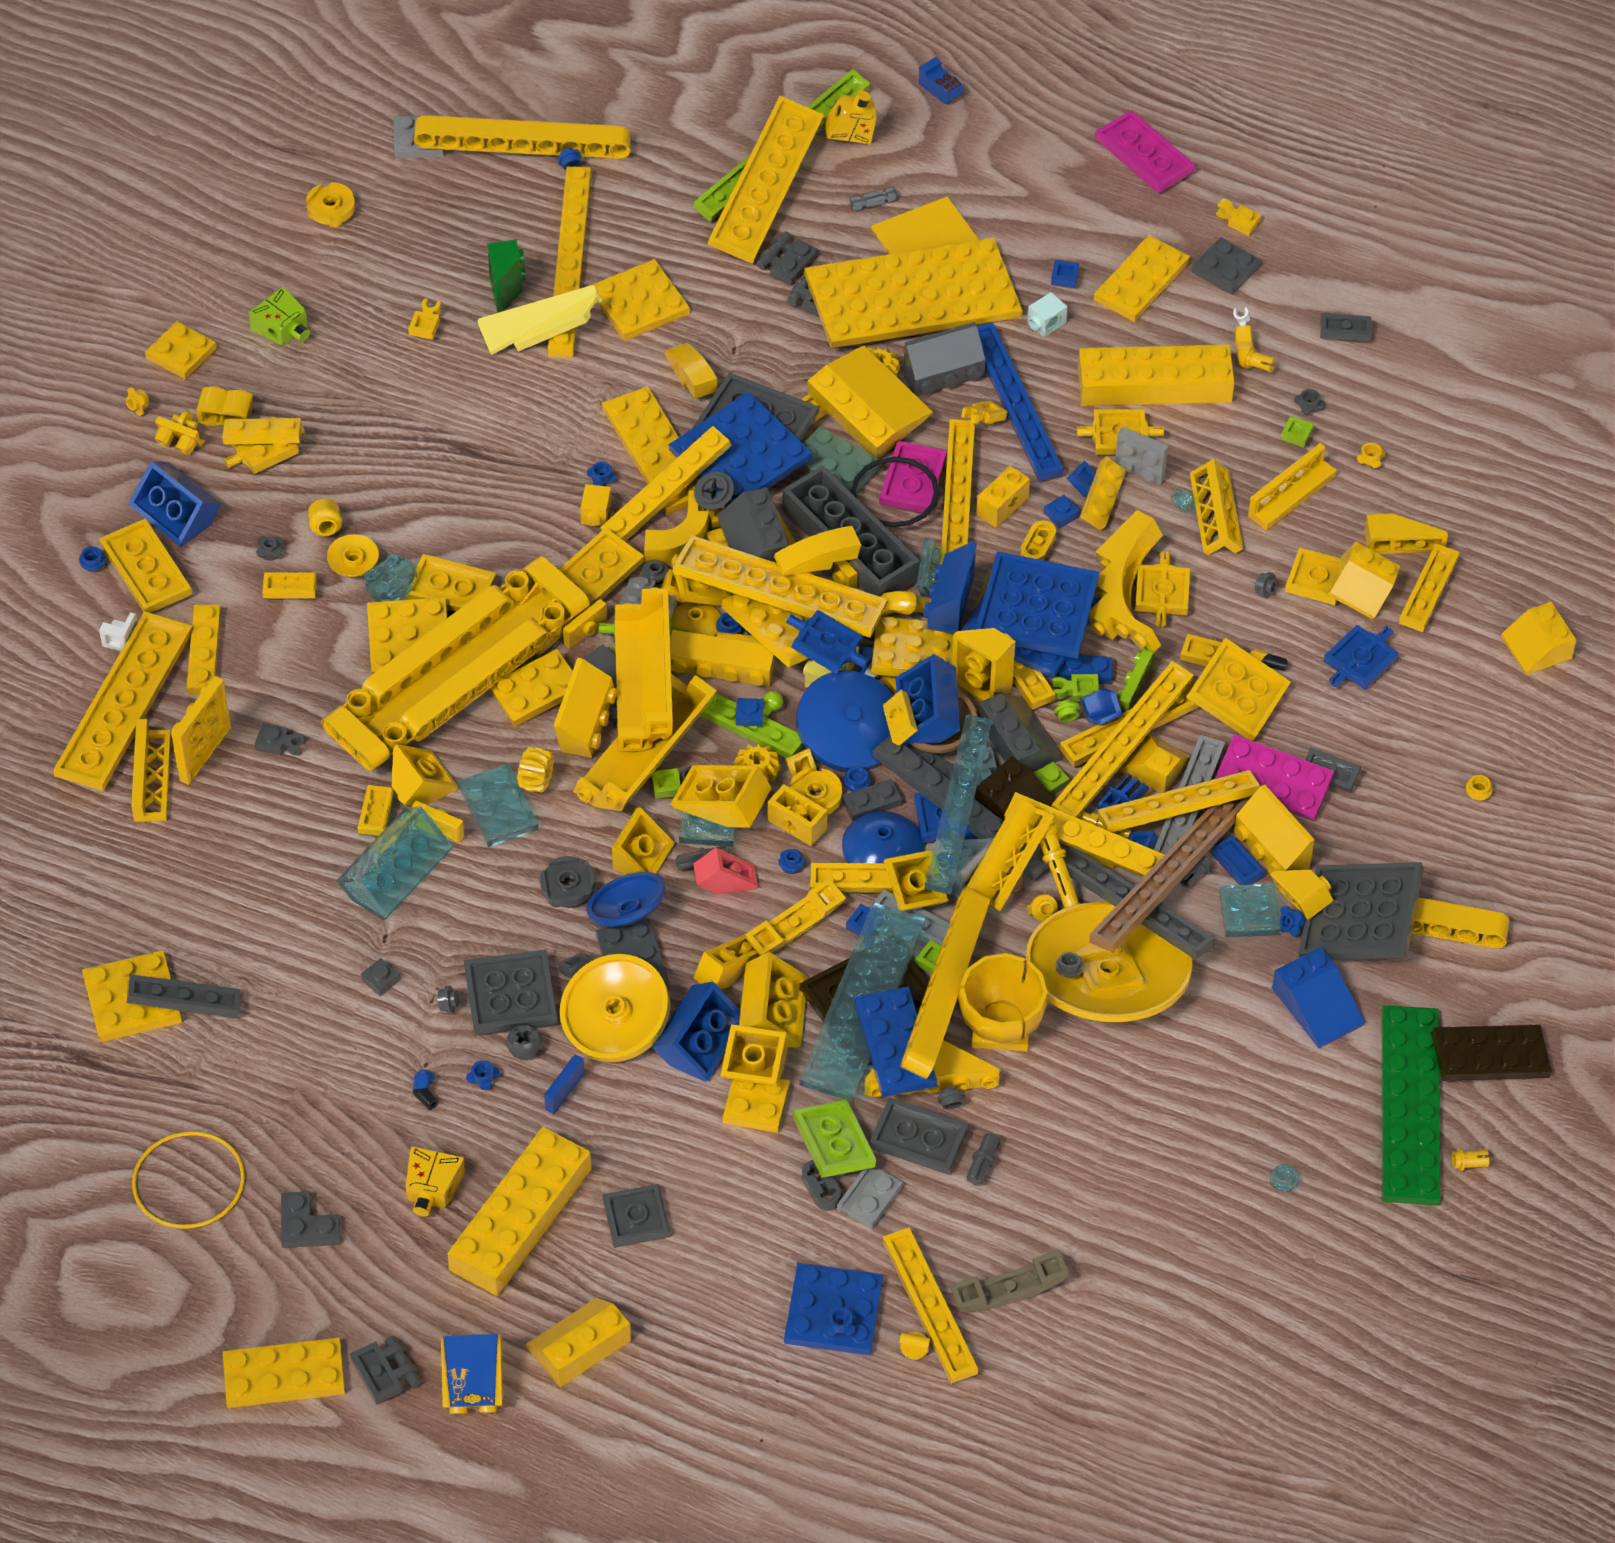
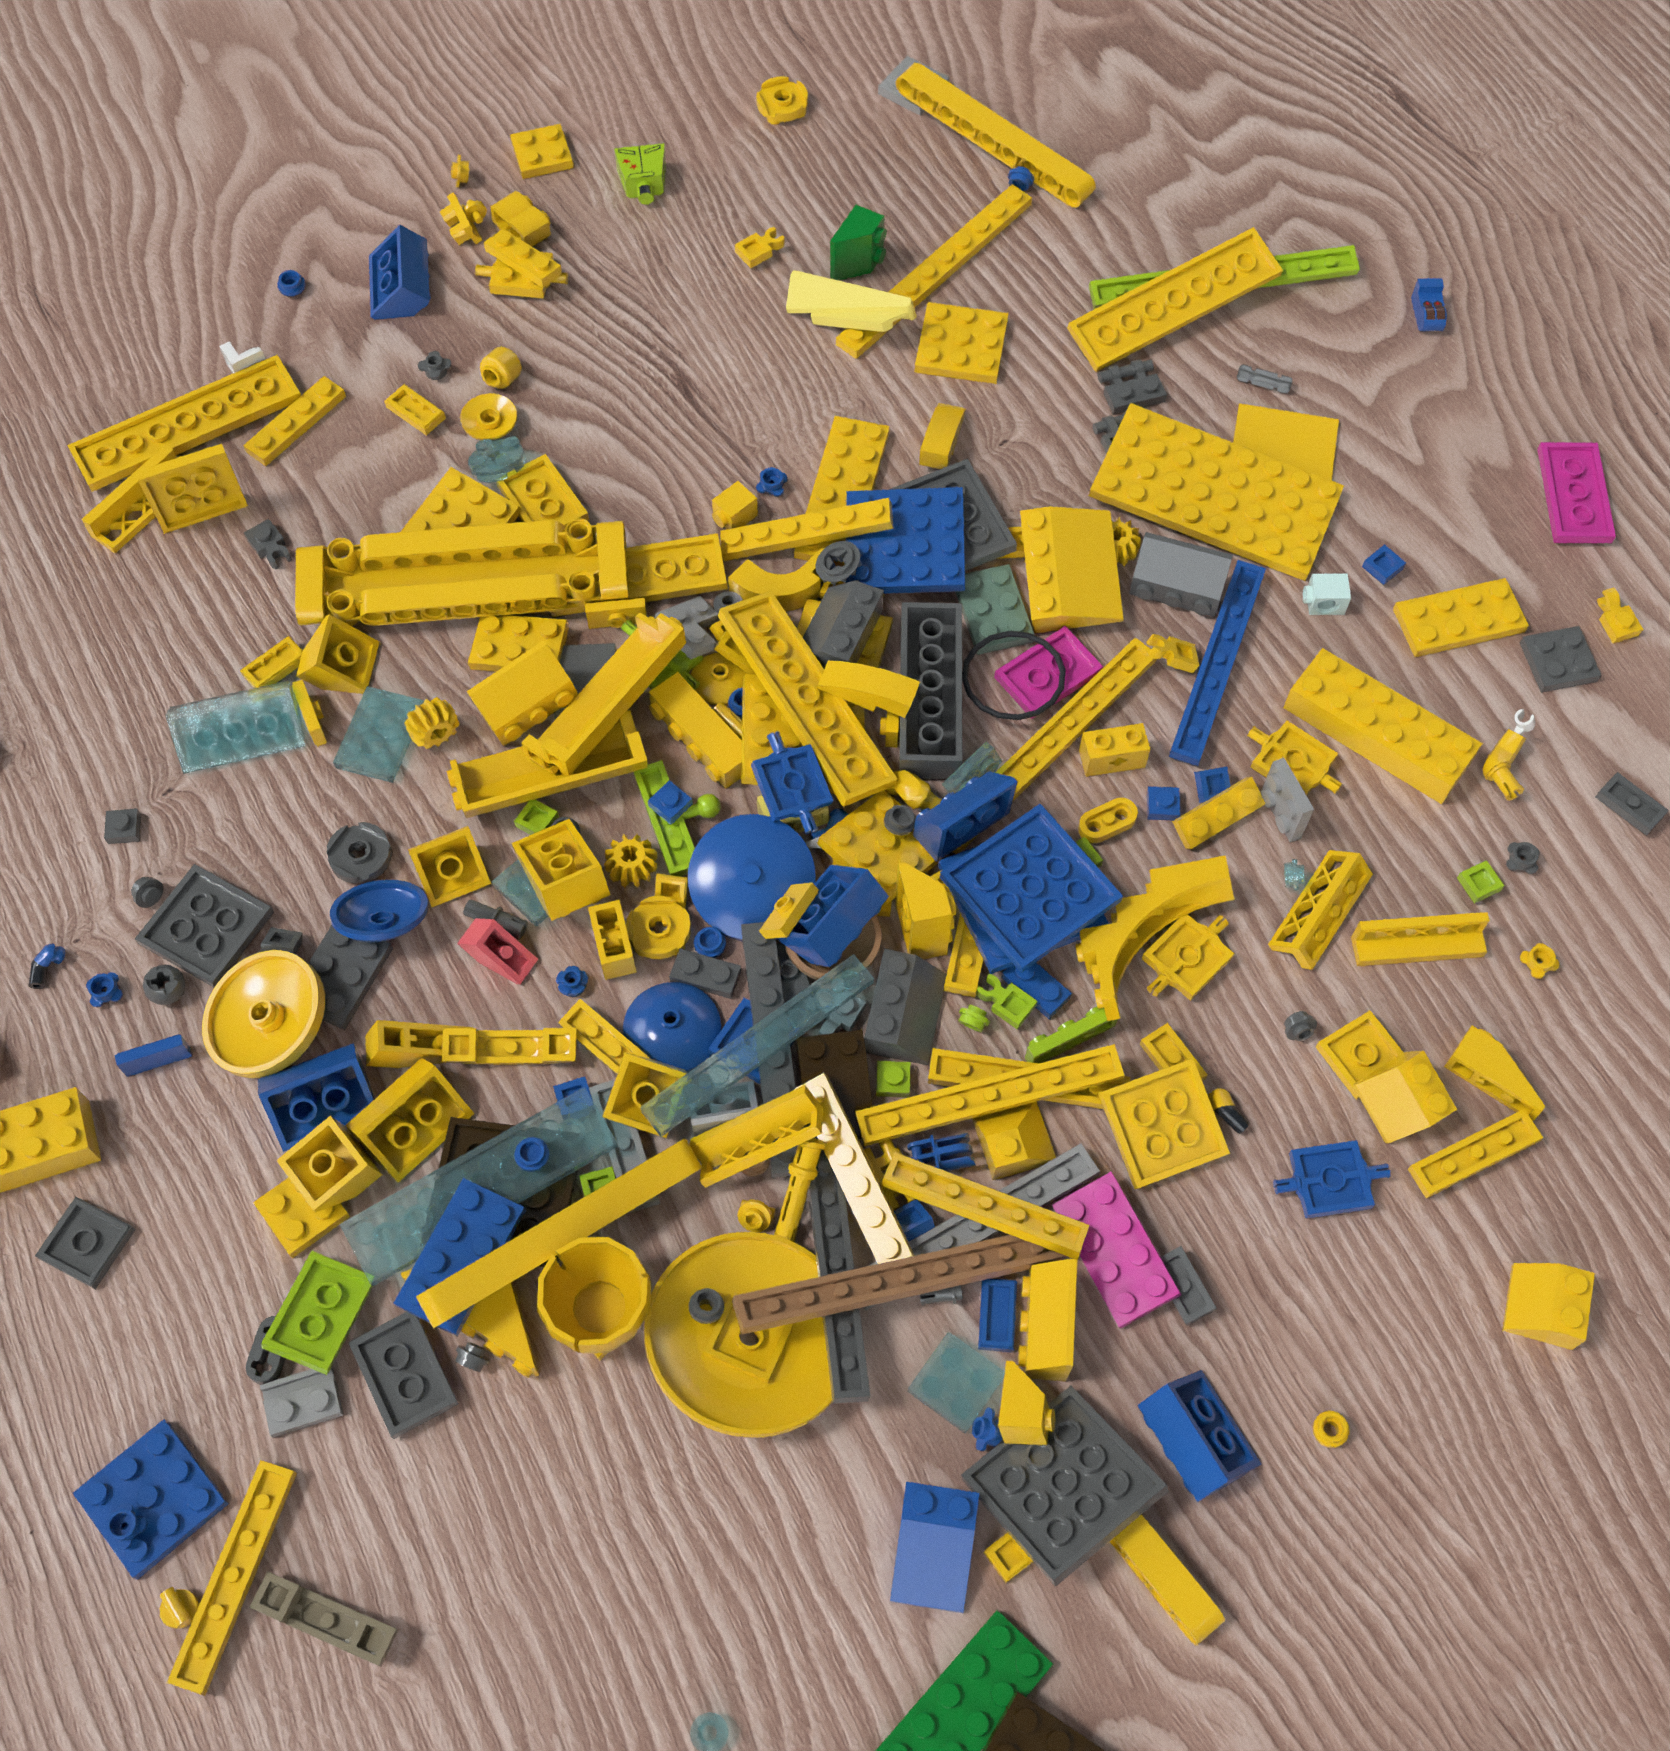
camera: 40 degrees right, 10 degrees up
(145, 566) = (321, 317): yellow plate -> none
(852, 119) = (1307, 290): yellow torso -> none
(882, 956) = (531, 1154): none -> blue plate
(913, 622) = (899, 820): none -> dark grey plate
(983, 1158) = (436, 1452): dark grey axle -> none
(1101, 706) = (1006, 1039): blue panel -> none
(1363, 977) = (1007, 1557): none -> yellow tile
(1409, 841) = (1198, 1435): none -> blue slope

